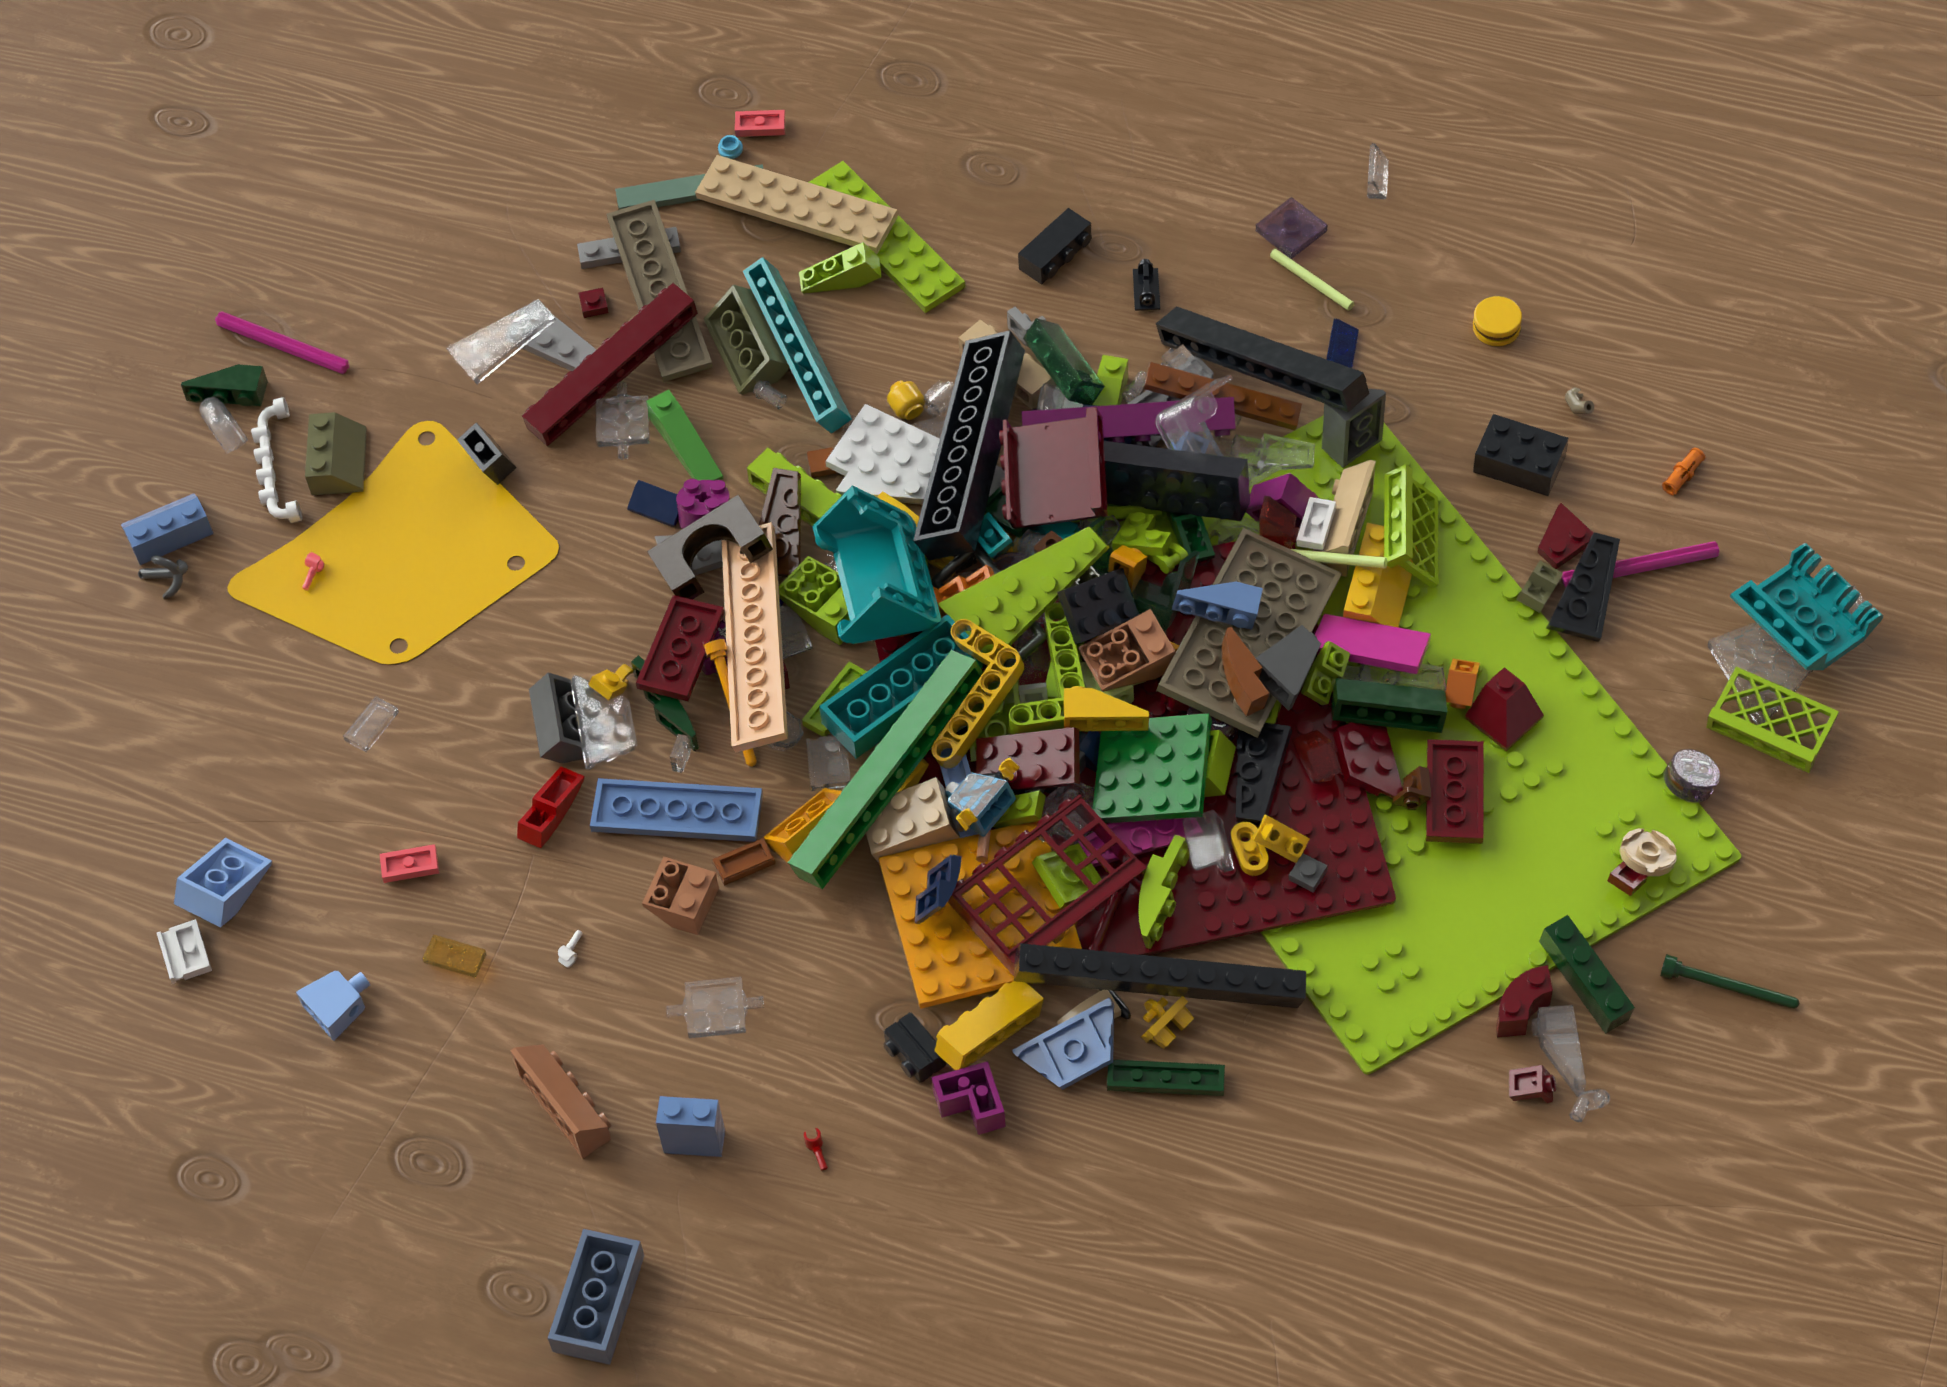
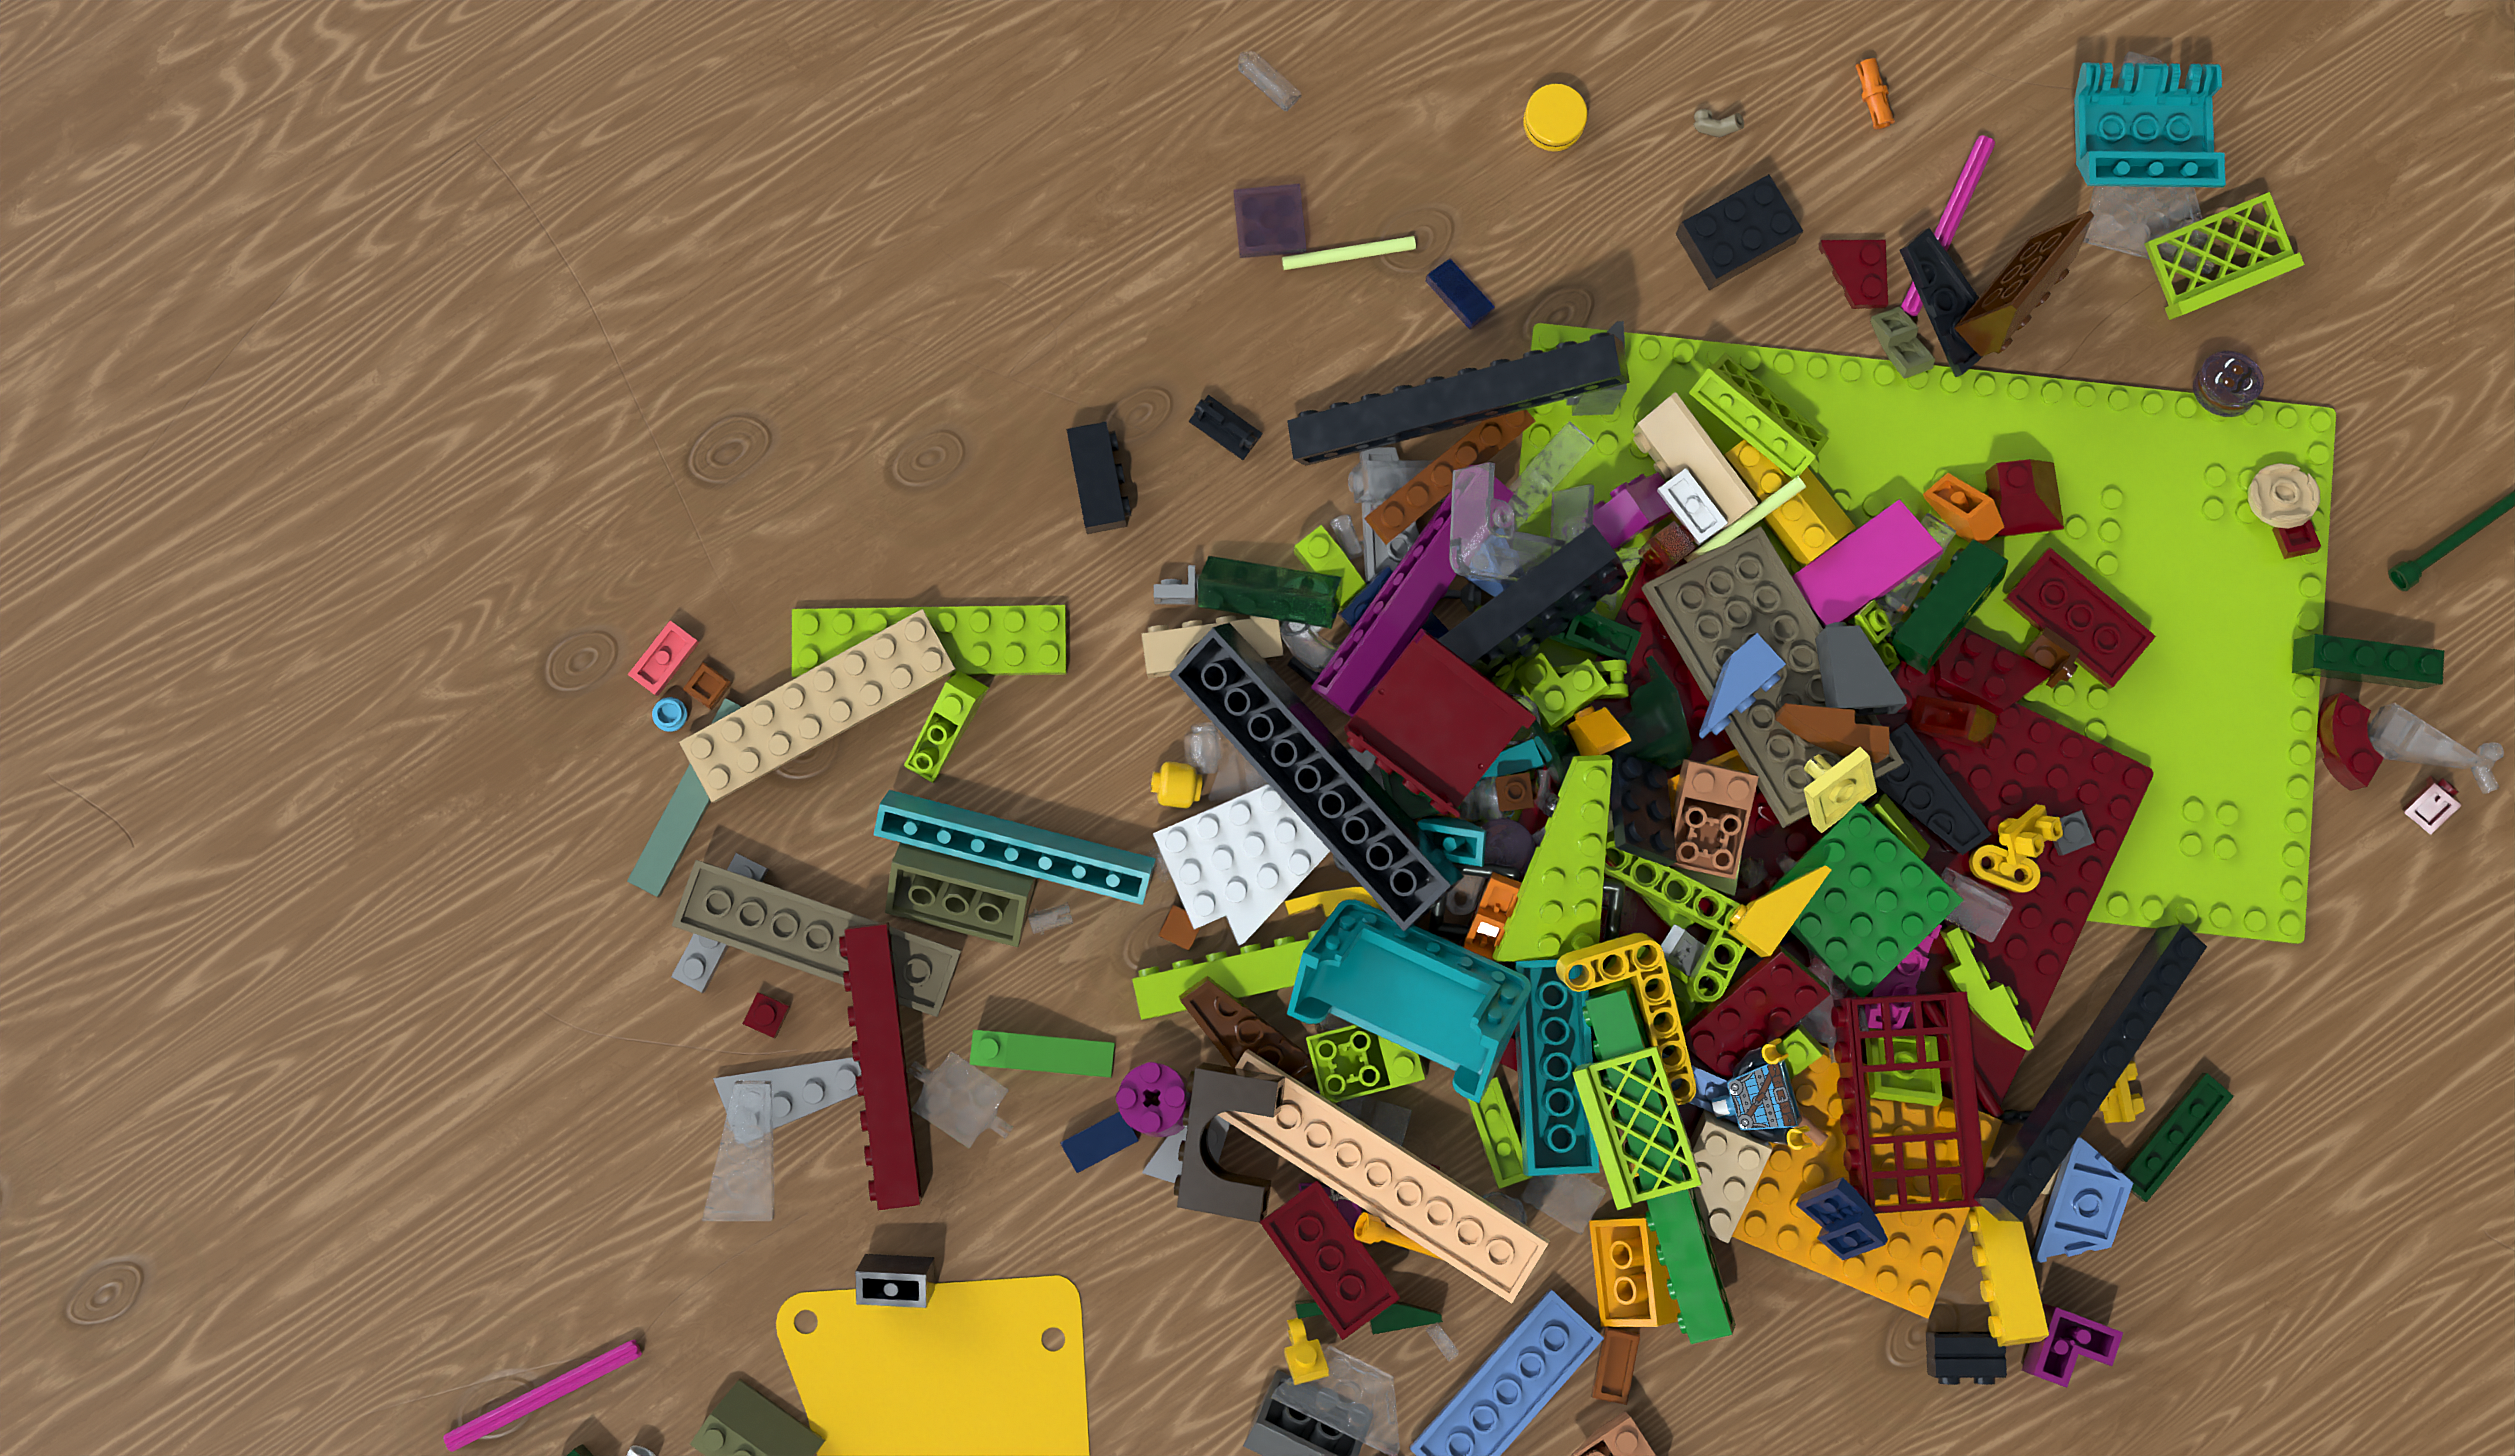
camera: 60 degrees left, 25 degrees up
(763, 154) = (707, 686): none -> dark orange tile
(881, 720) = (1607, 1137): none -> lime fence
(1203, 688) = (1838, 787): none -> light yellow tile
(1635, 608) = (2023, 285): none -> reddish brown slope

